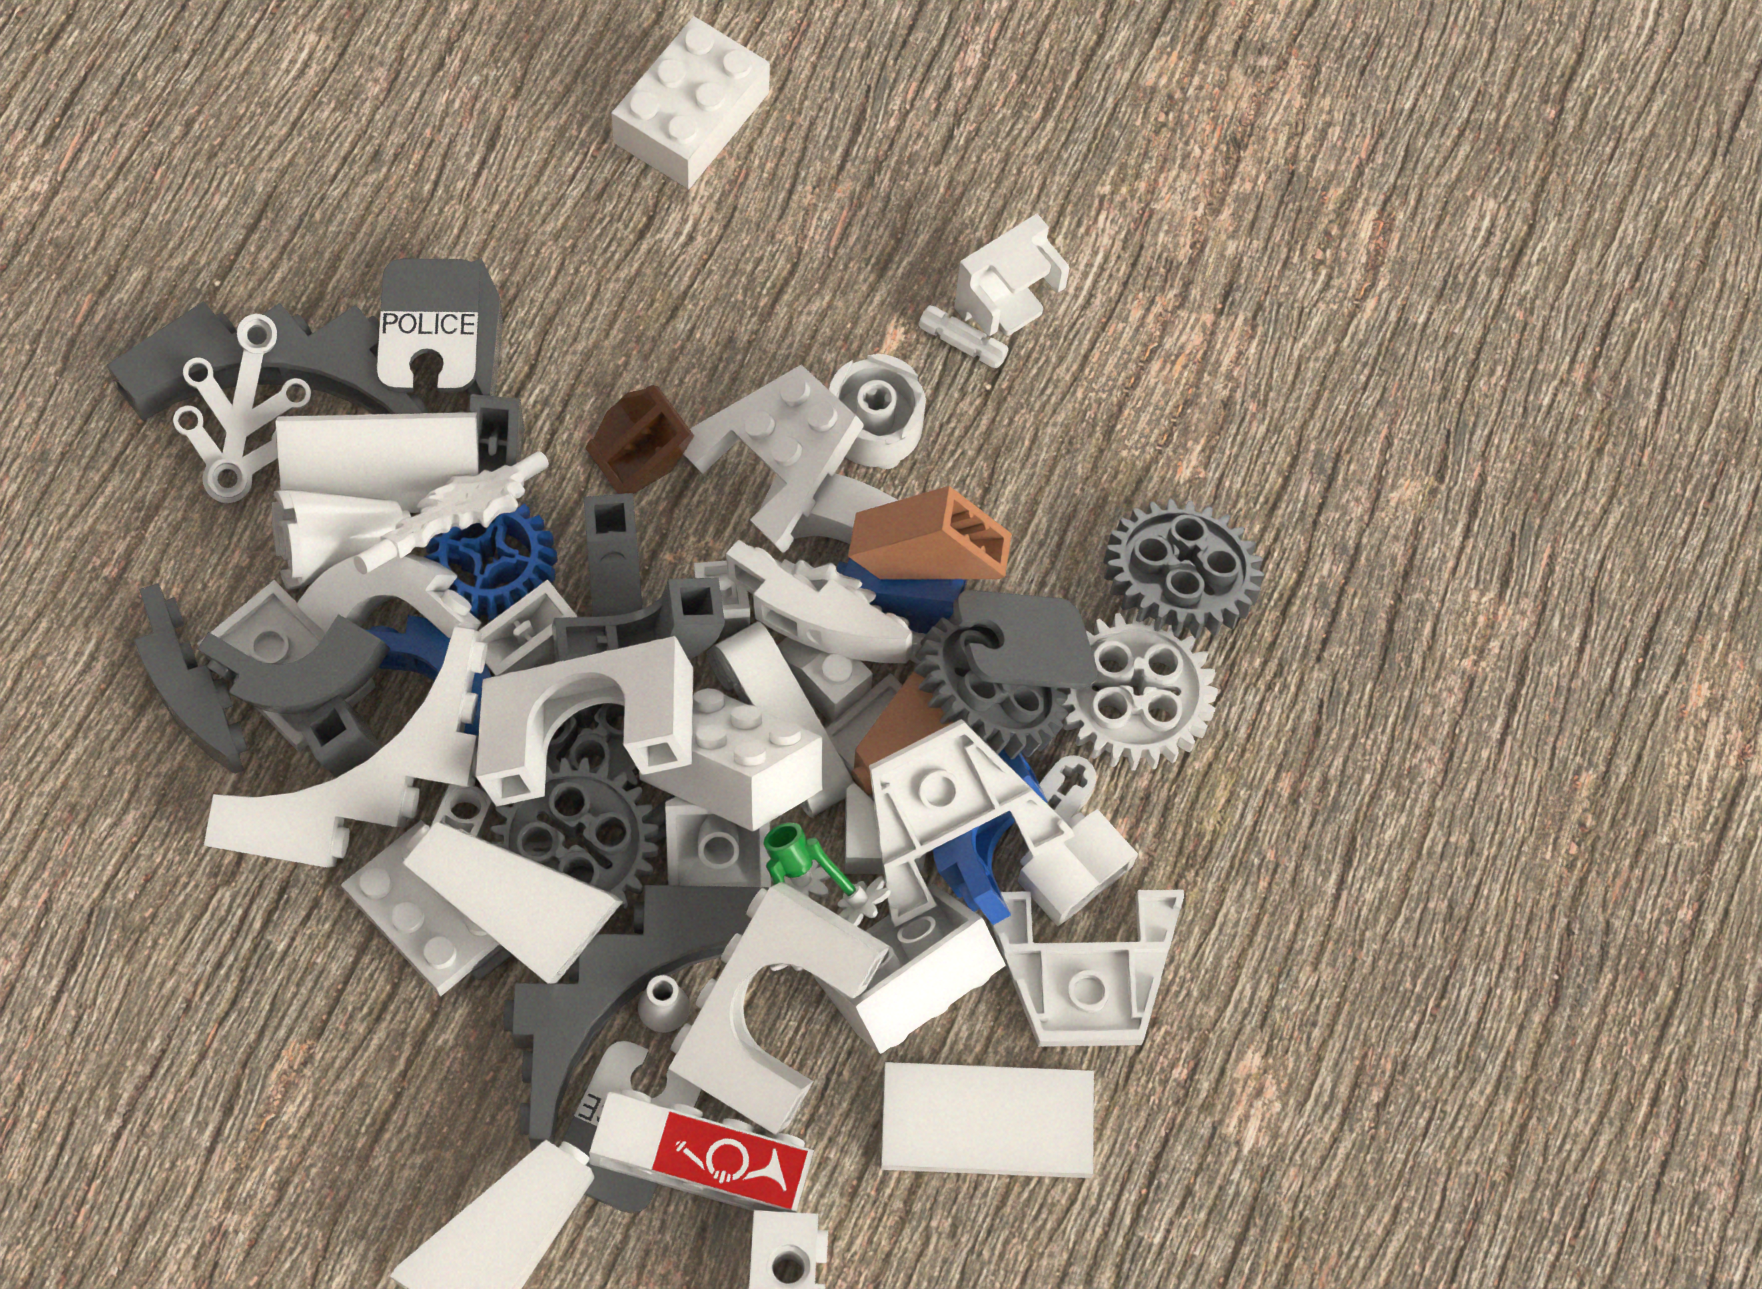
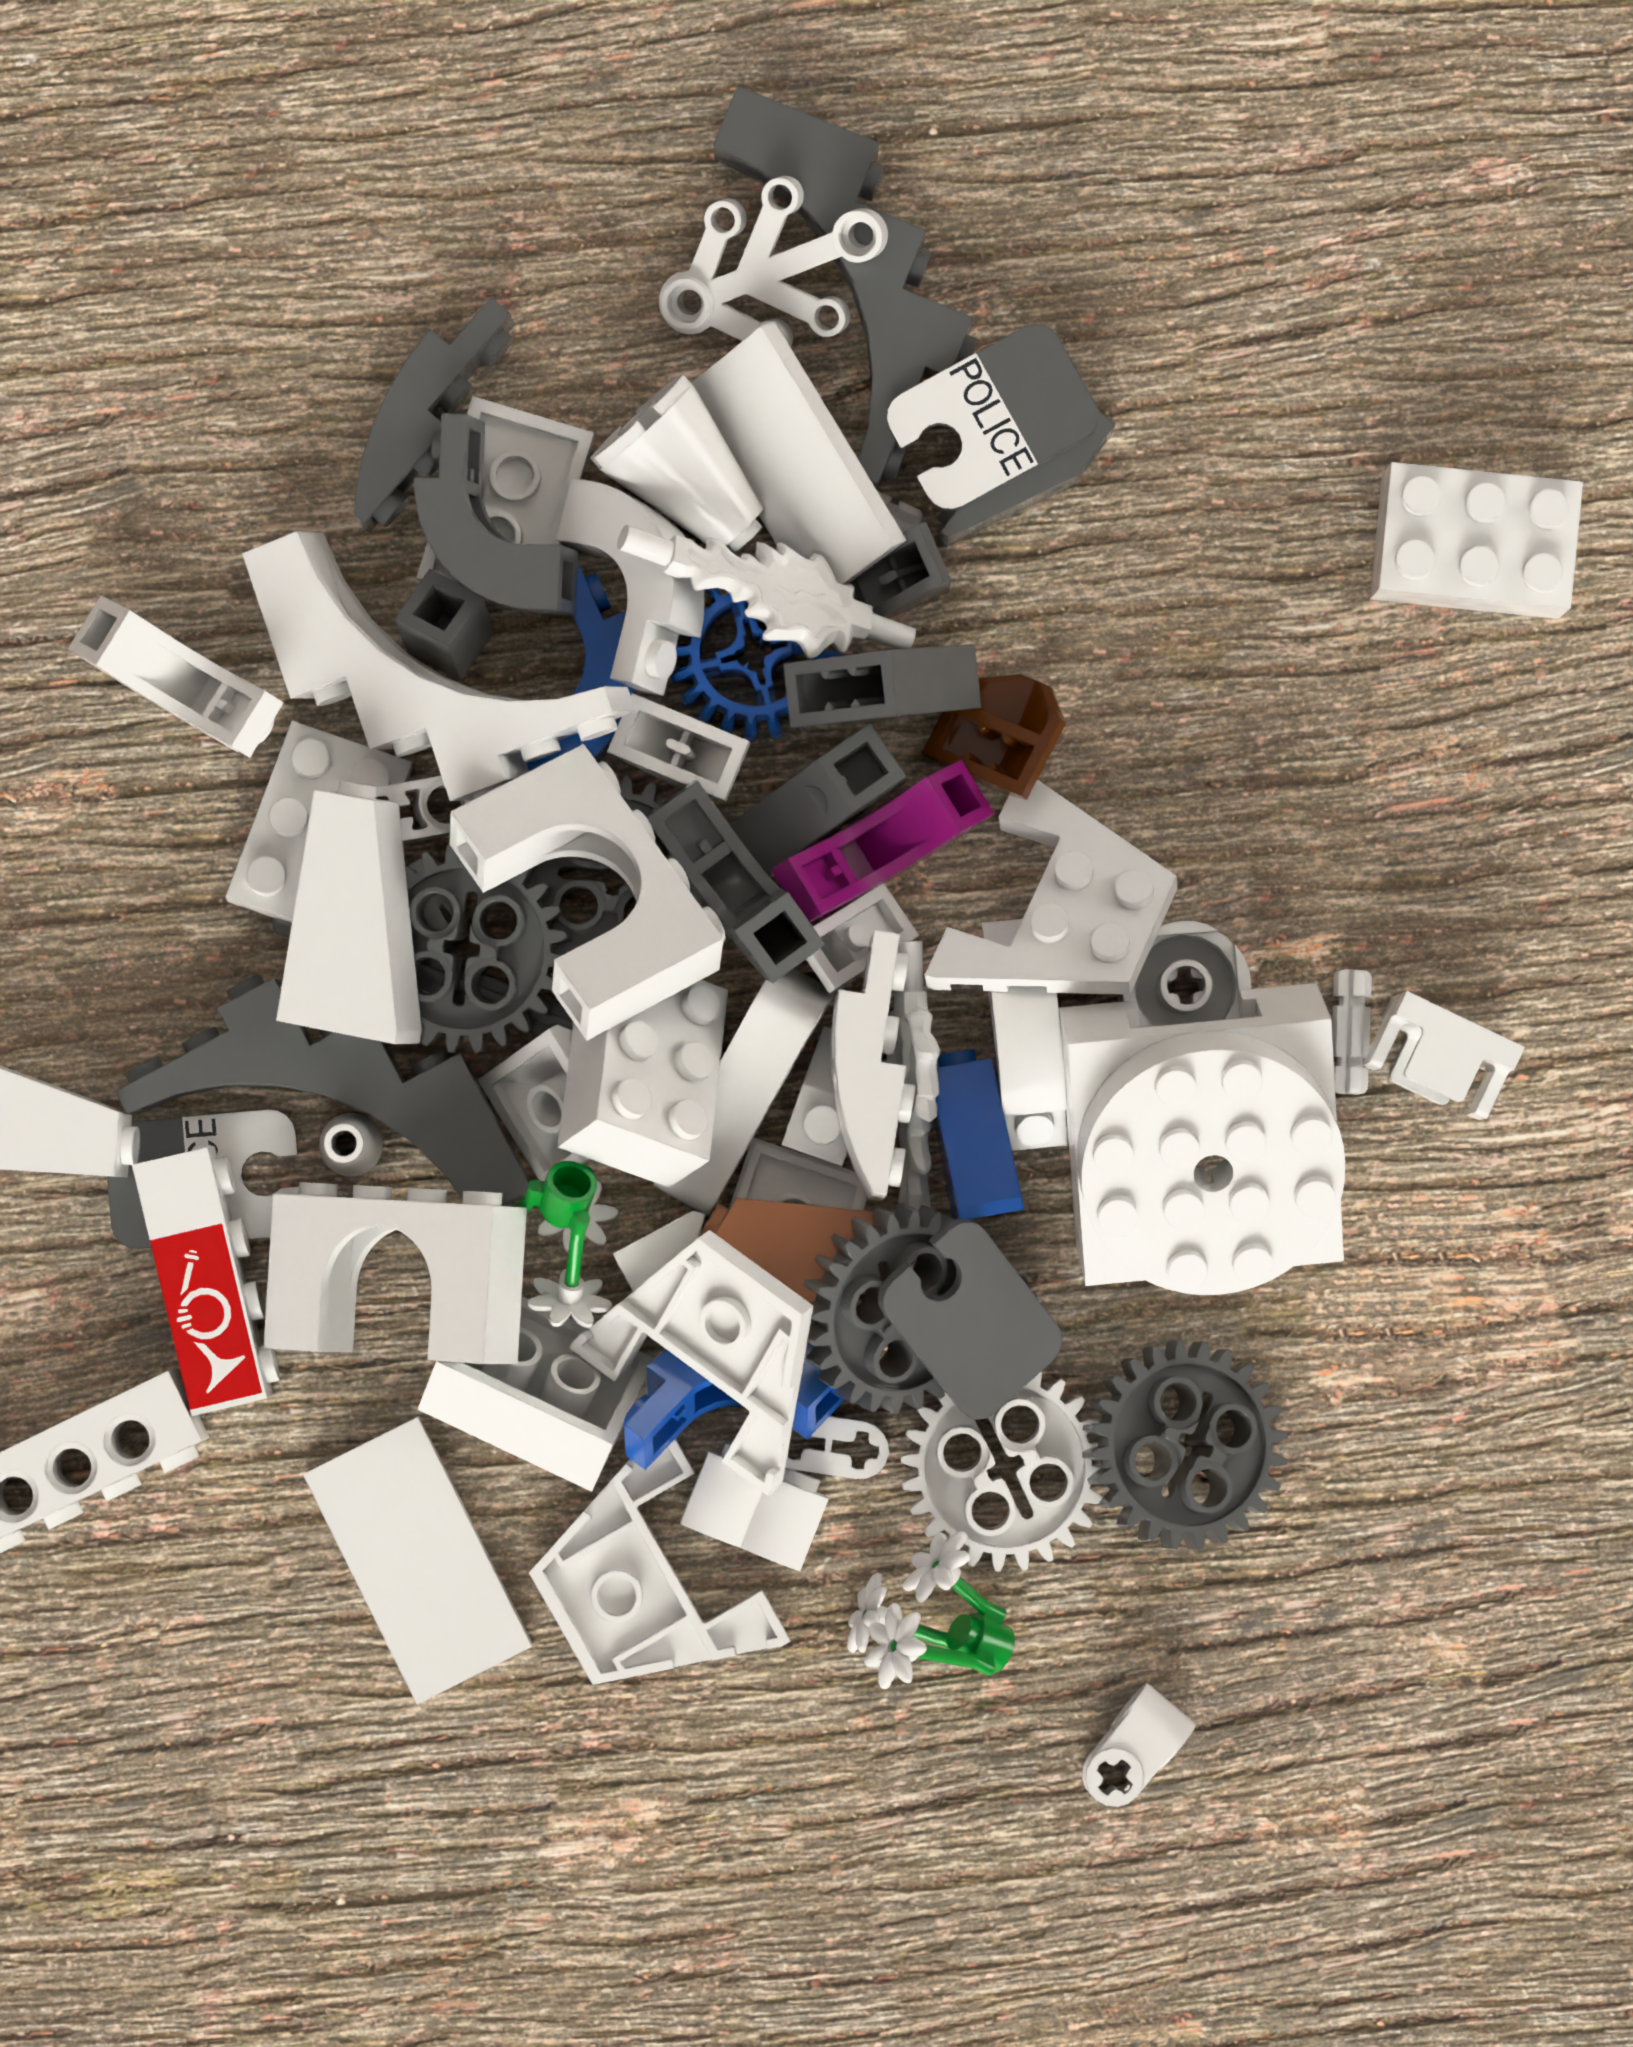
camera: 65 degrees right, 20 degrees up
(266, 943) = (175, 677): none -> white arch
(560, 478) = (882, 685): none -> dark grey slope
(666, 527) = (884, 842): none -> magenta arch
(930, 538) = (1011, 1155): nougat slope -> none
(954, 432) = (1170, 1095): none -> white piece
(1230, 787) = (972, 1640): none -> plant
(1370, 703) = (1145, 1737): none -> white piece

